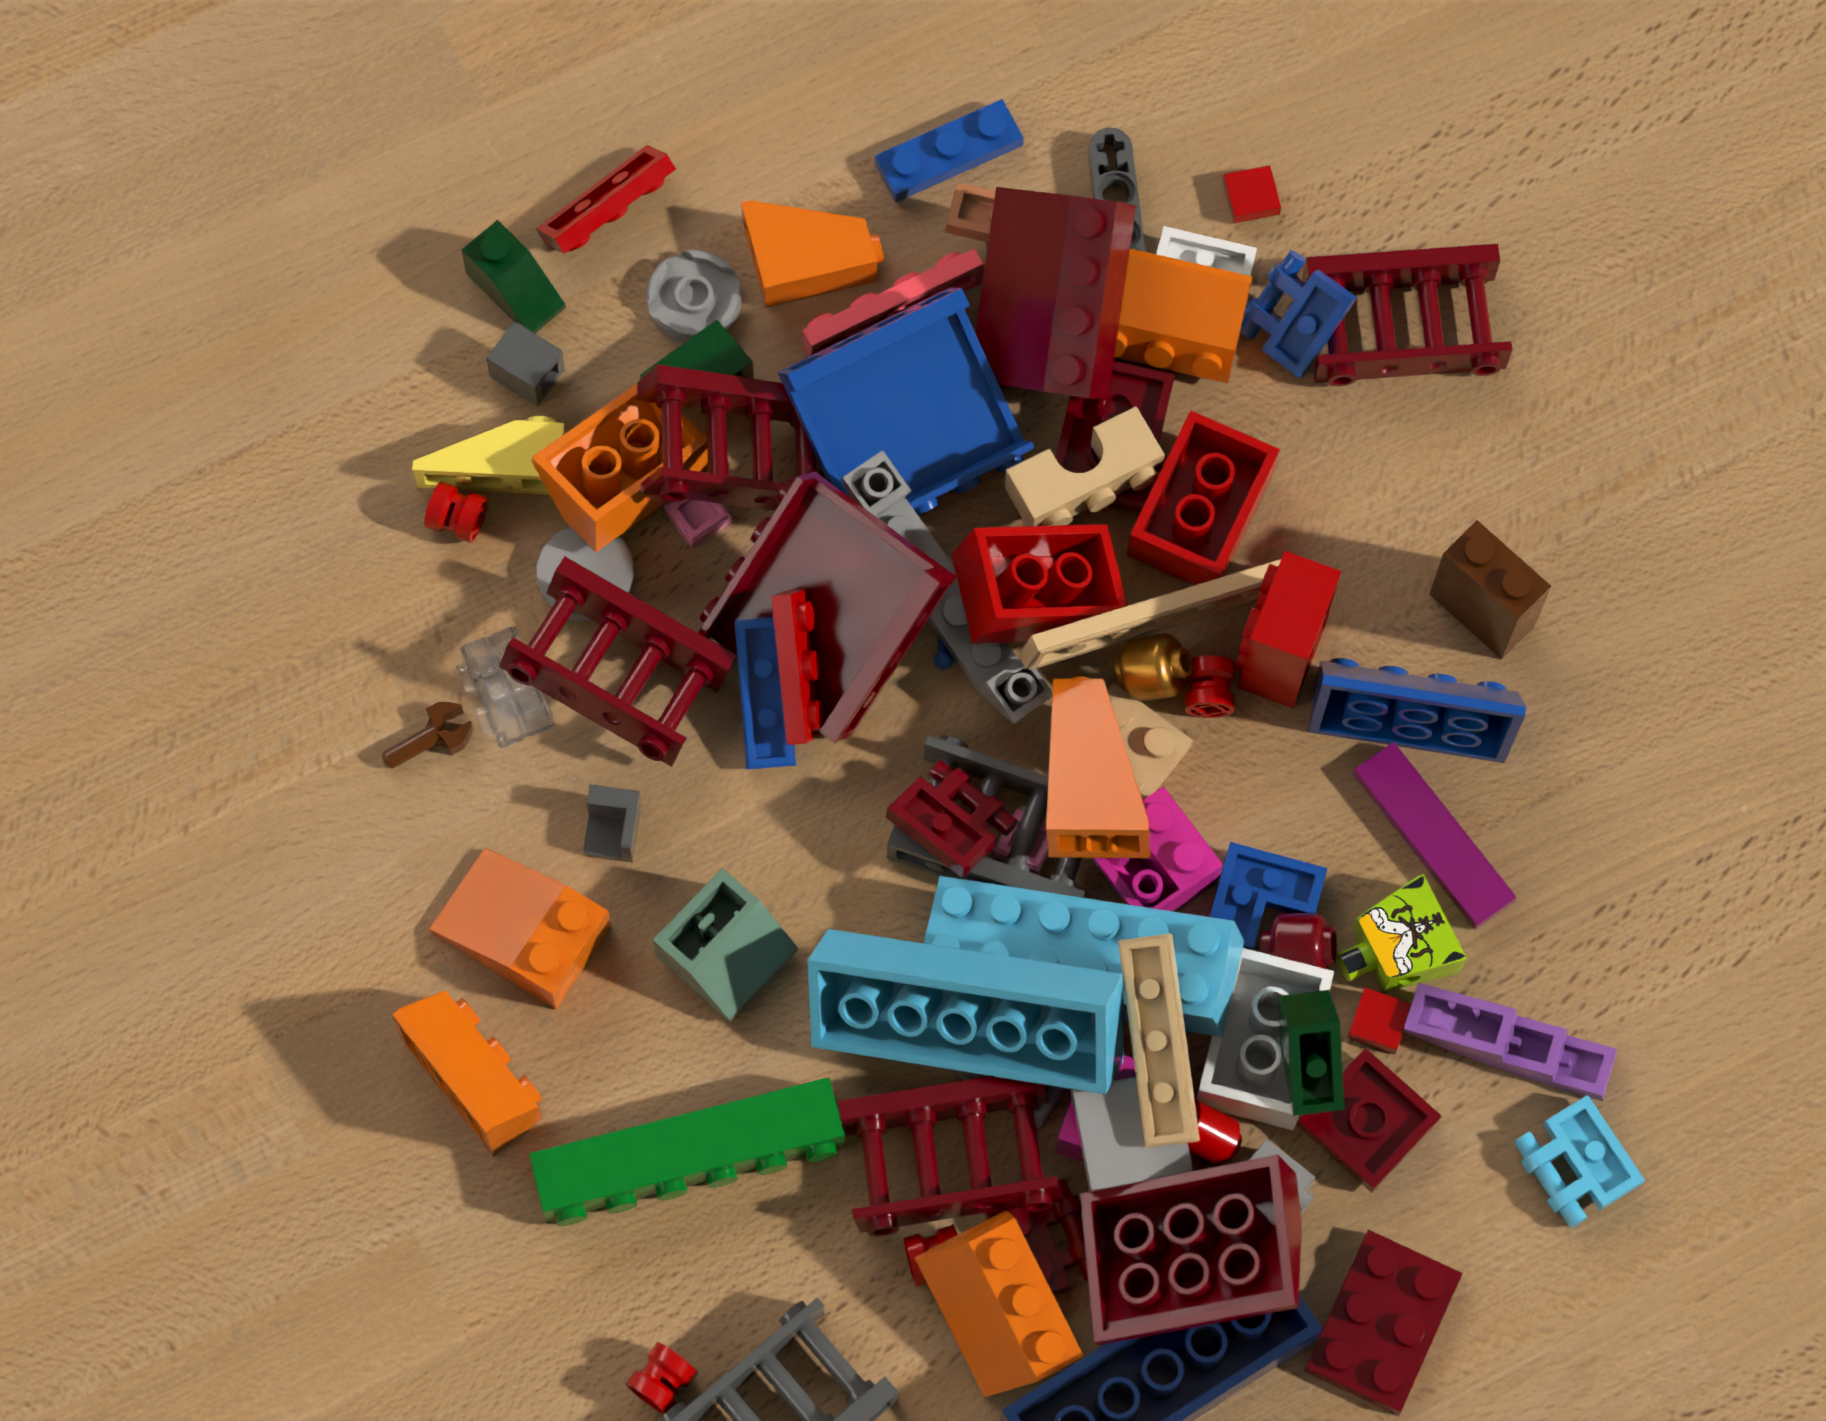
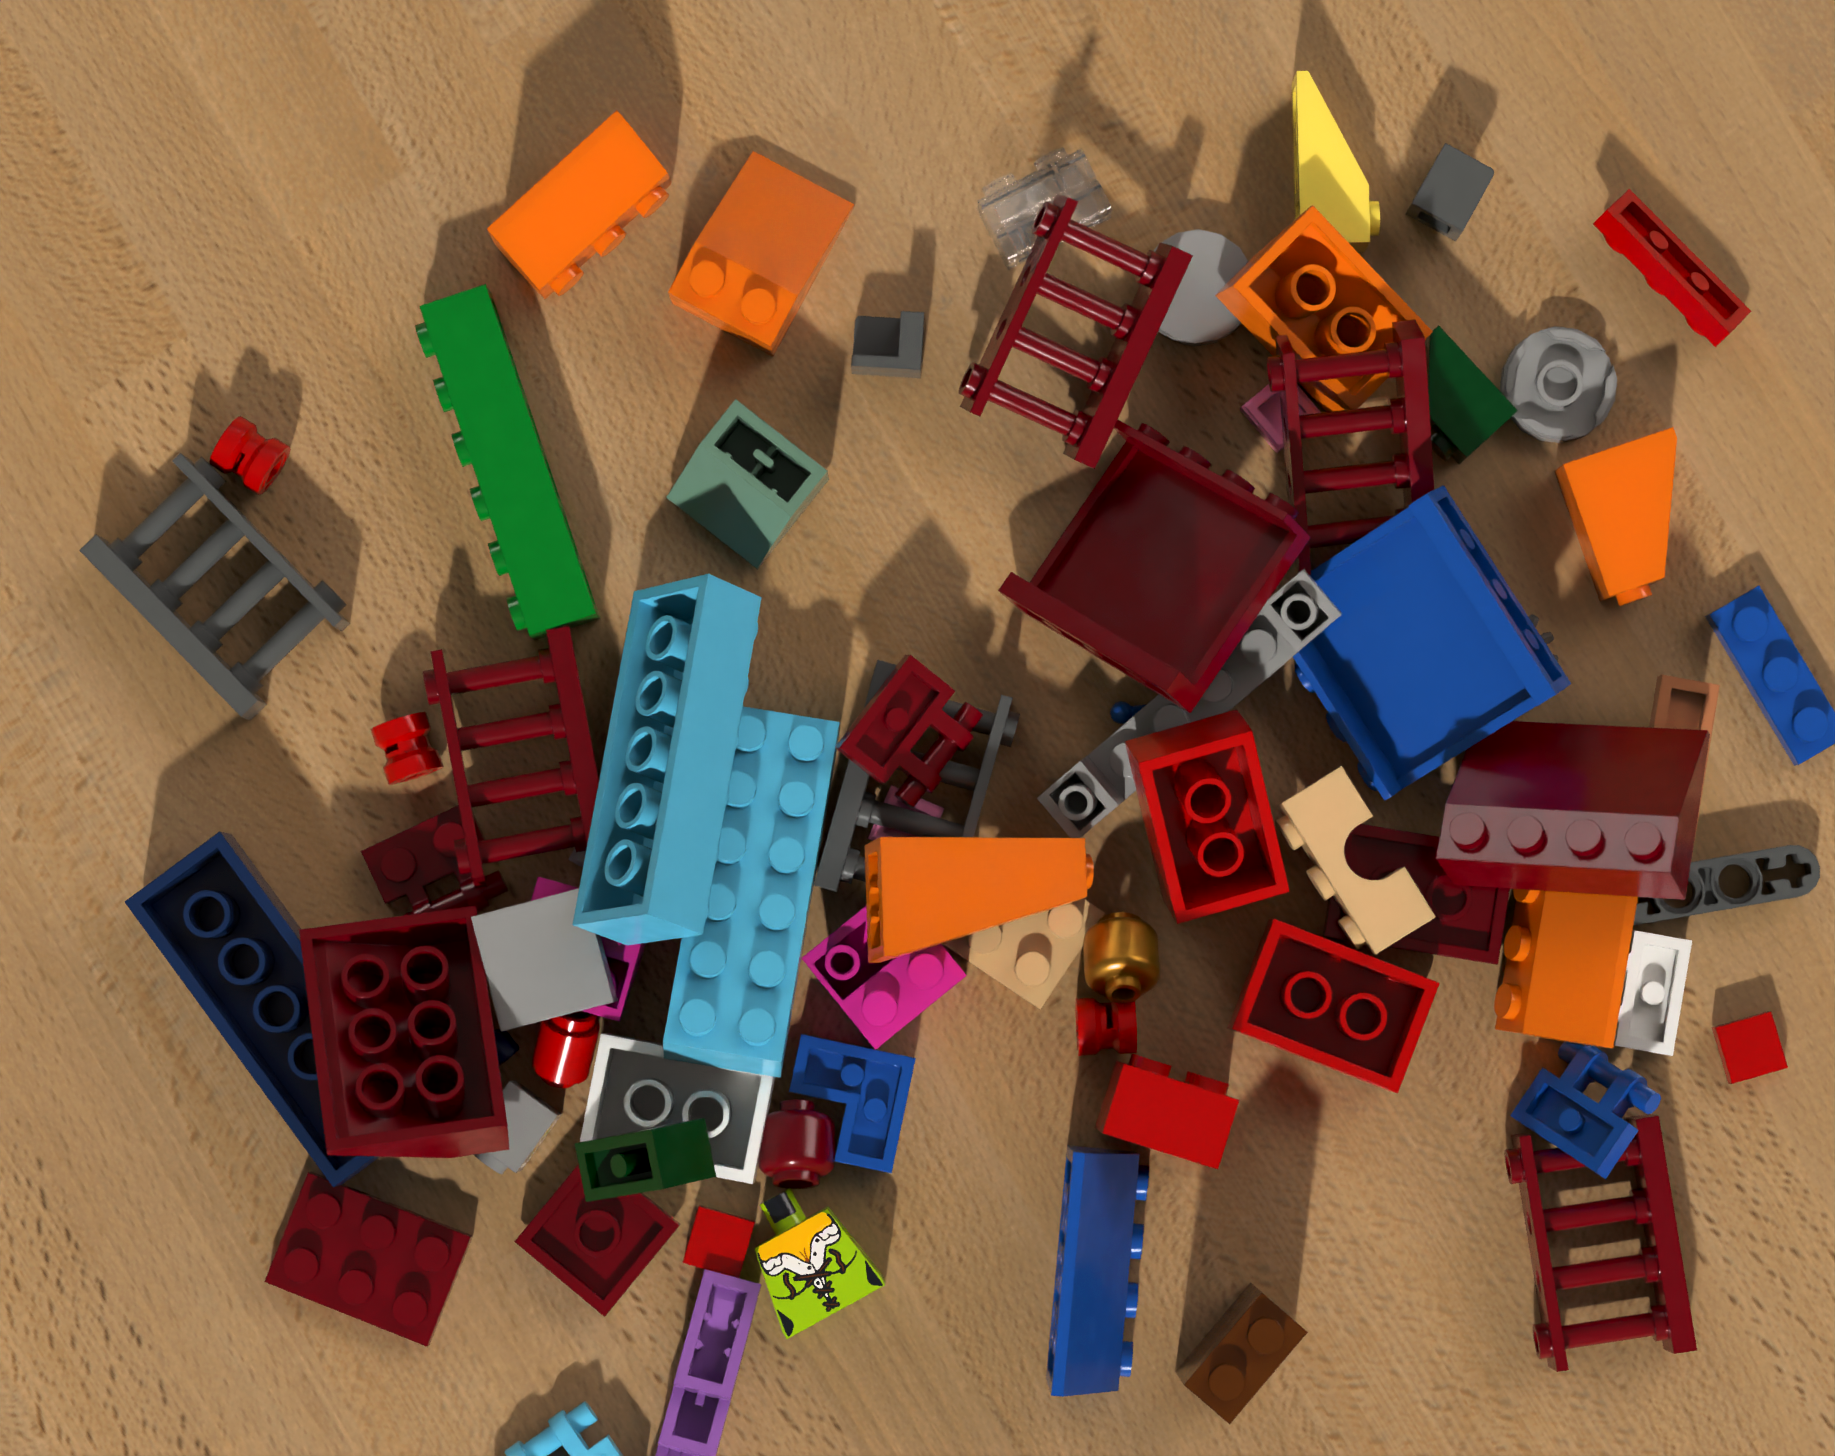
camera: 90 degrees right, 15 degrees up
(431, 735) = (982, 129): reddish brown bar -> none
(456, 512) = (1255, 129): red wheel -> none
(512, 277) = (1557, 166): dark green slope -> none
(761, 695) = (1057, 506): blue tile -> none
(797, 666) = (1083, 538): red plate -> none
(951, 271) = (1550, 600): coral plate -> none
(999, 1306) = (346, 825): orange slope -> none
(1143, 617) = (1181, 961): tan tile -> none
(1158, 1040) = (635, 981): tan tile -> none
(1434, 835) = (946, 1298): magenta tile -> none

